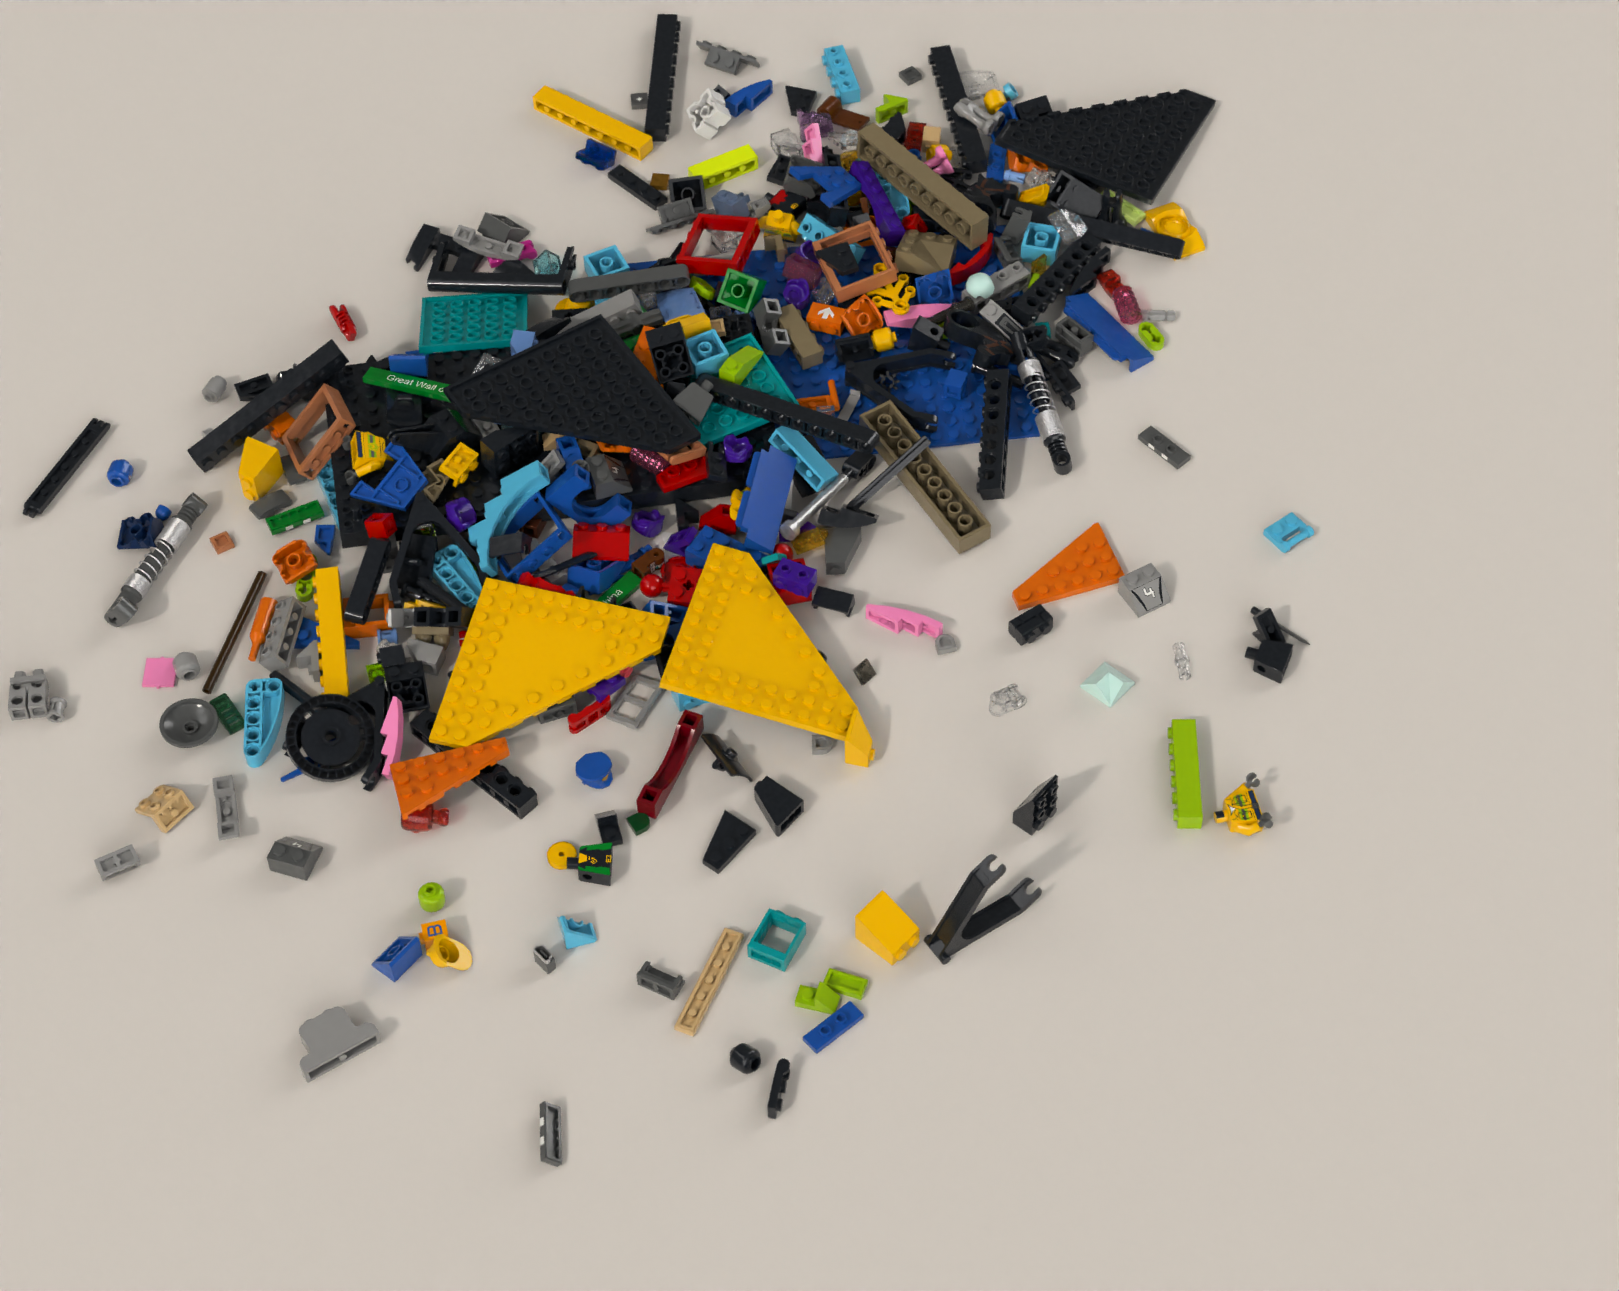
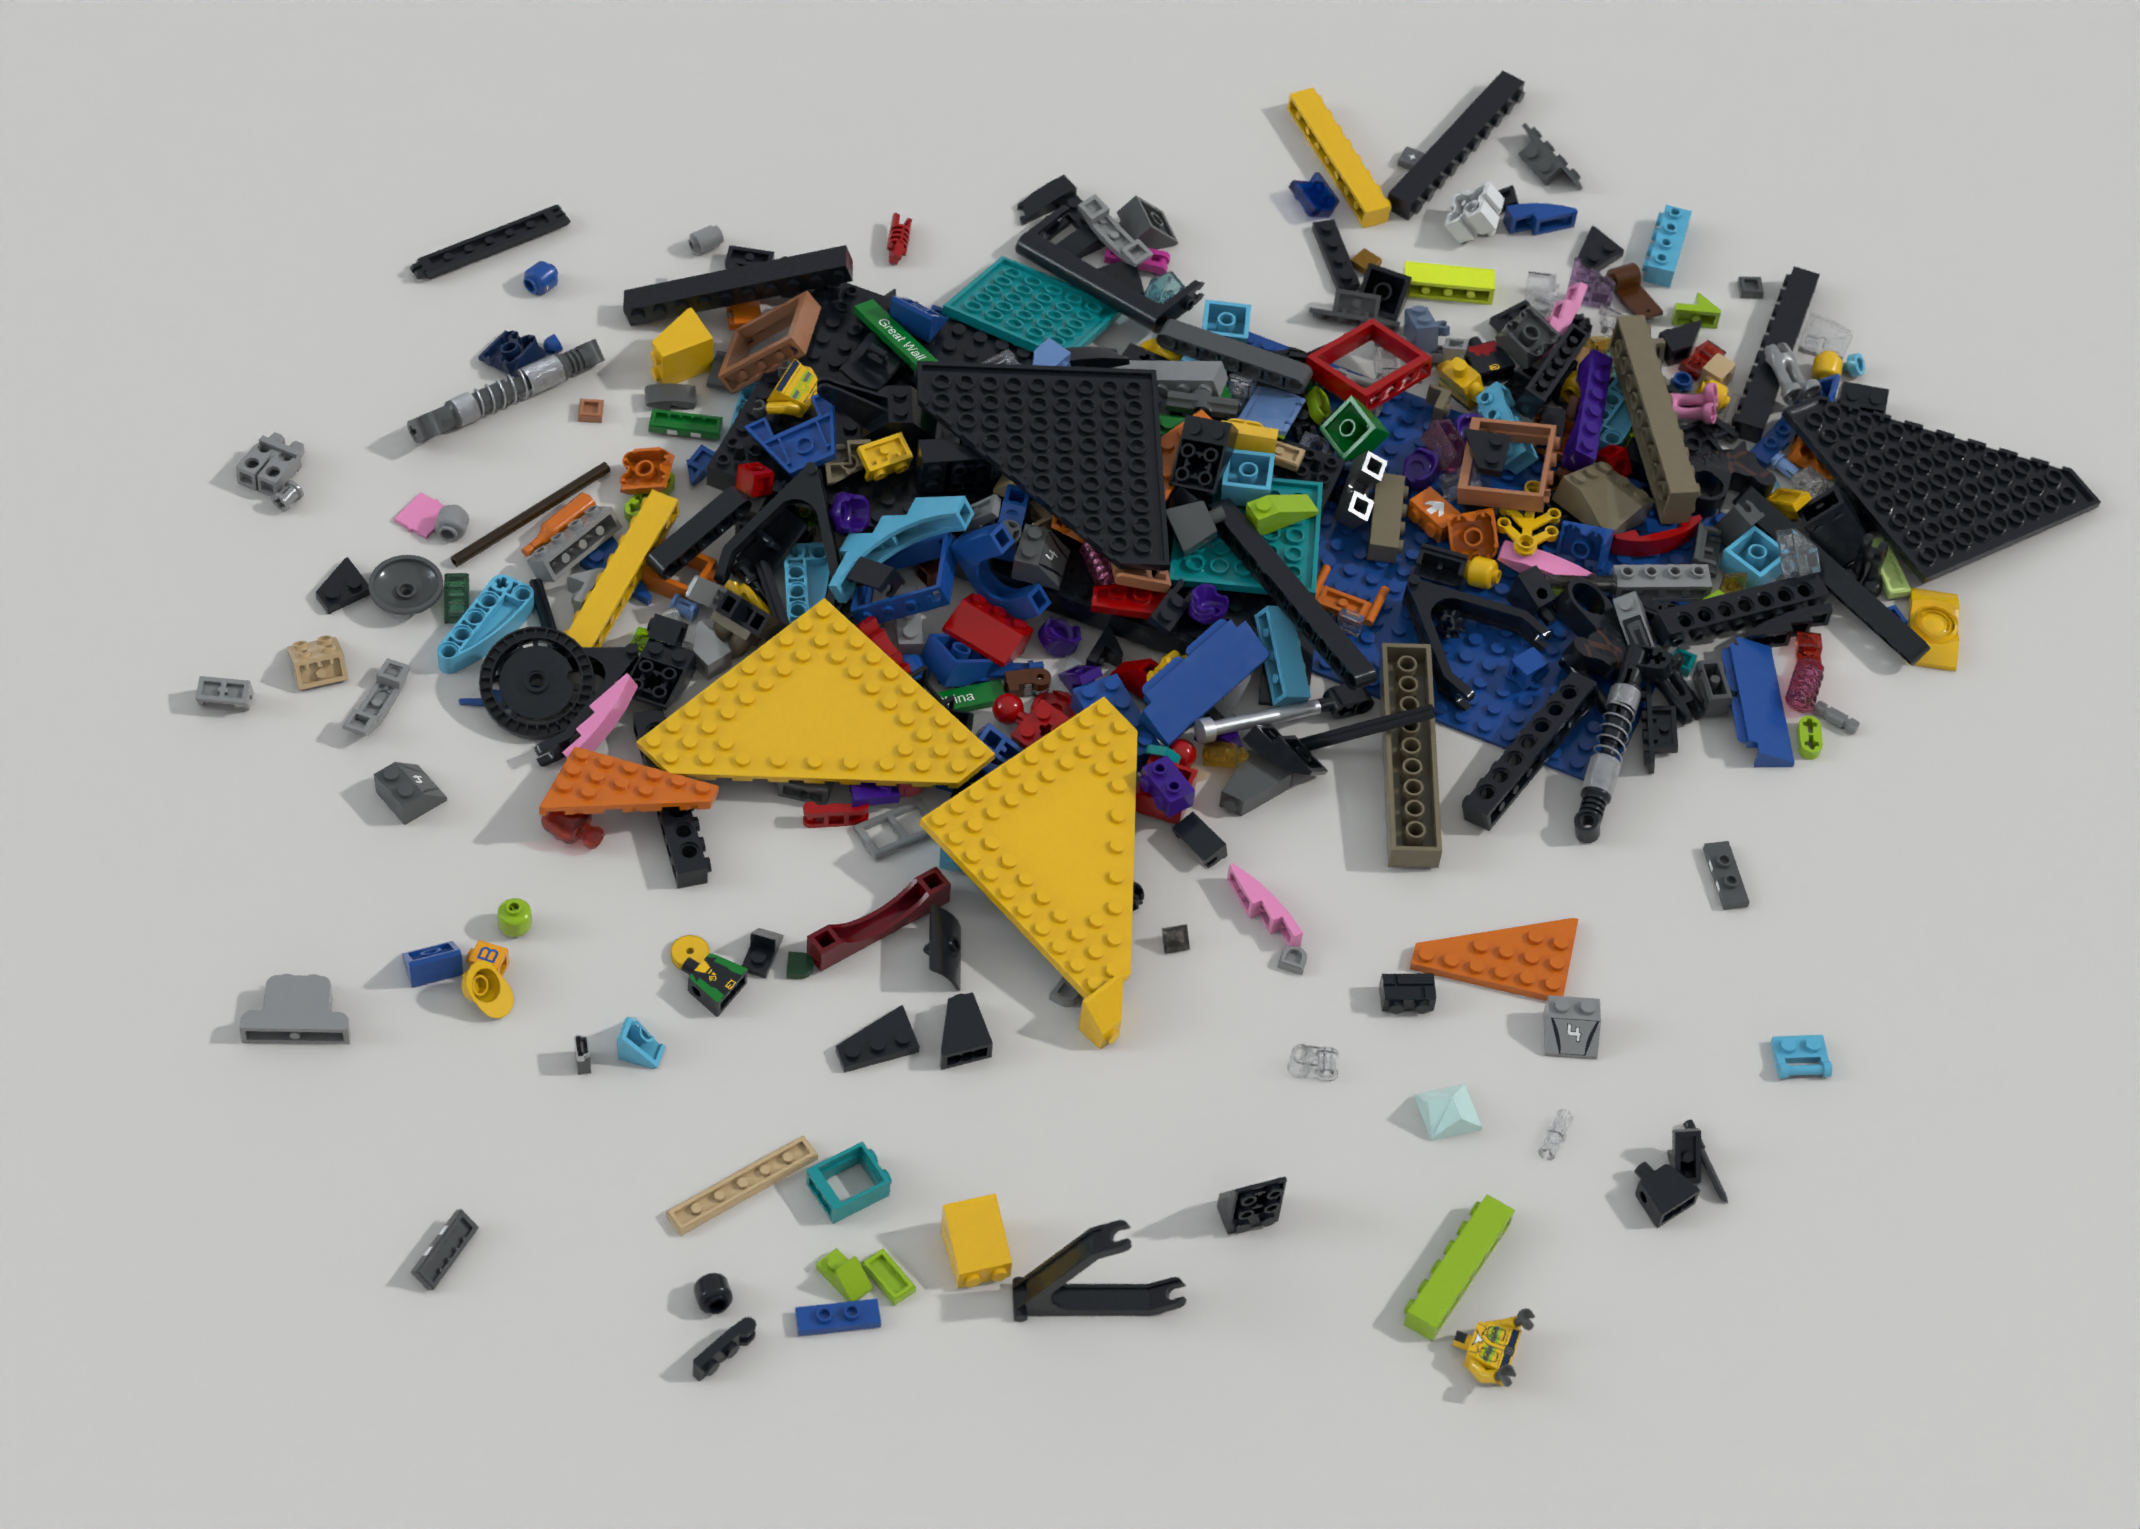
camera: 25 degrees right, 0 degrees up
(142, 749) = (342, 587): none -> black wing
(566, 564) = (925, 632): black piece -> none
(595, 770) = (794, 879): blue hat -> none
(659, 981) = (688, 1152): dark grey hinge -> none
(832, 178) = (1555, 360): blue wing -> none
(849, 405) = (1387, 629): light grey piece -> none
(980, 285) = (1636, 569): light aqua hair -> none

